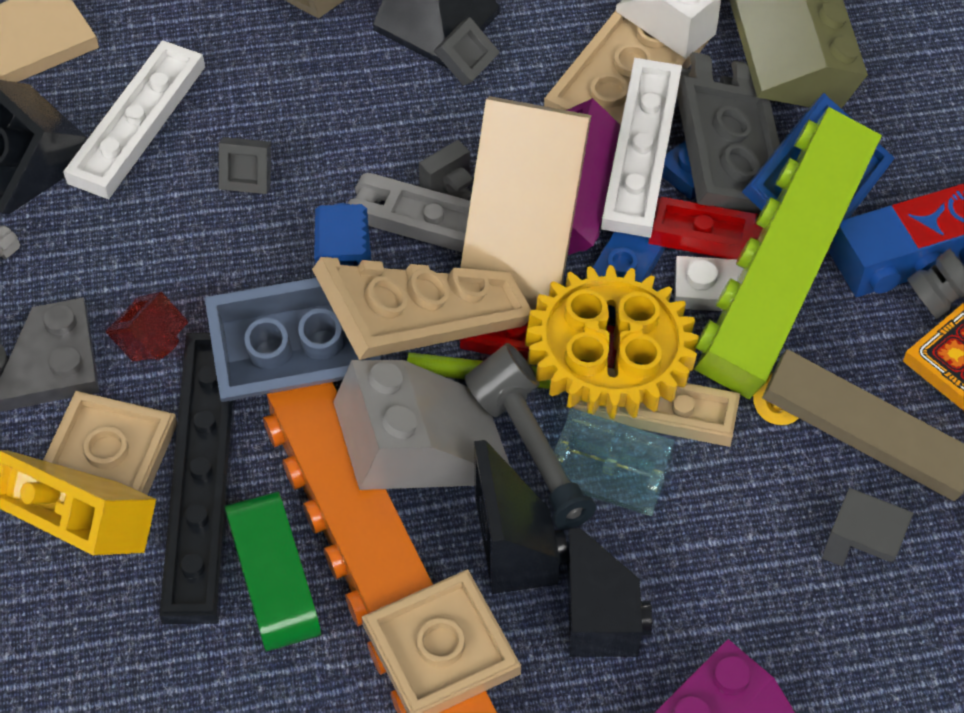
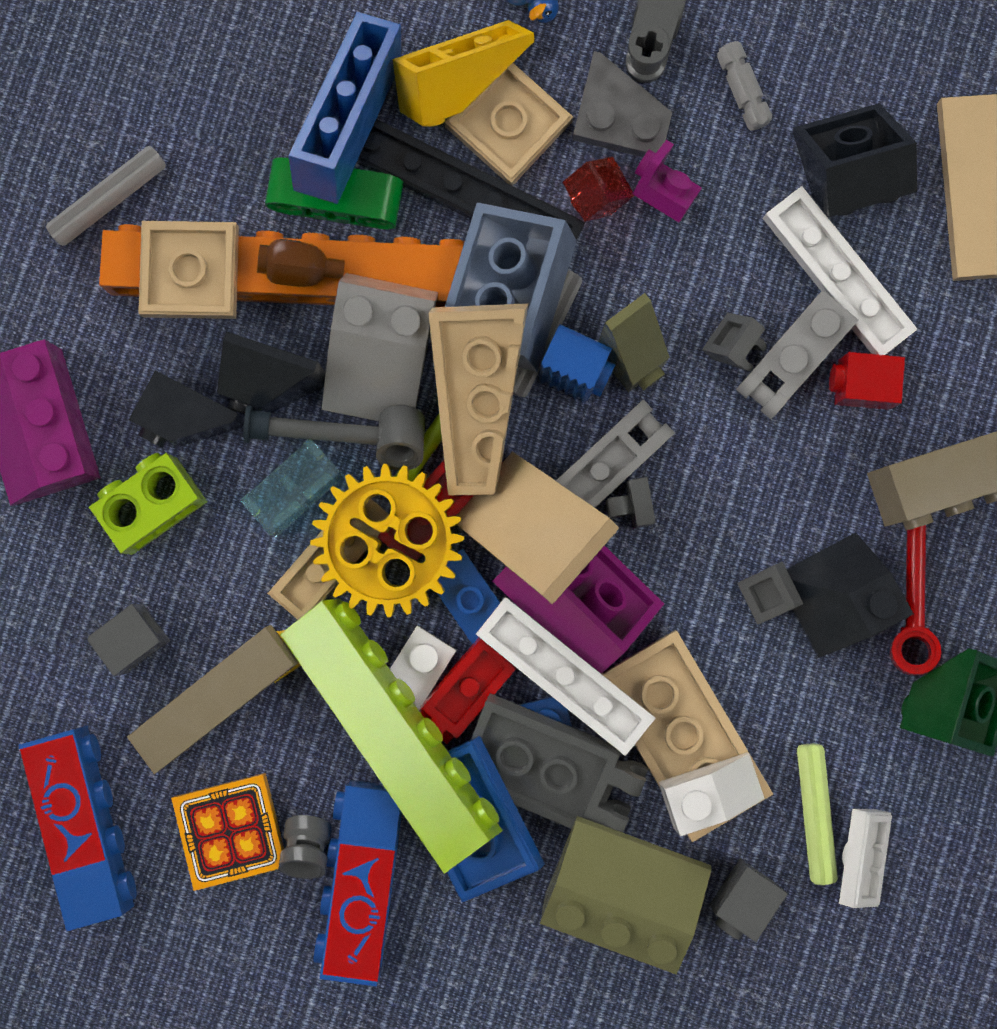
camera: 120 degrees right, 30 degrees up
(114, 278) = (663, 187): none -> magenta bracket
(171, 567) = (345, 108): none -> blue brick
(230, 57) = (868, 380): none -> red brick
(231, 114) = (798, 352): none -> light grey plate
(288, 219) = (636, 345): none -> olive slope
(376, 536) = (297, 263): none -> reddish brown plant
(723, 574) = (153, 514): none -> lime brick

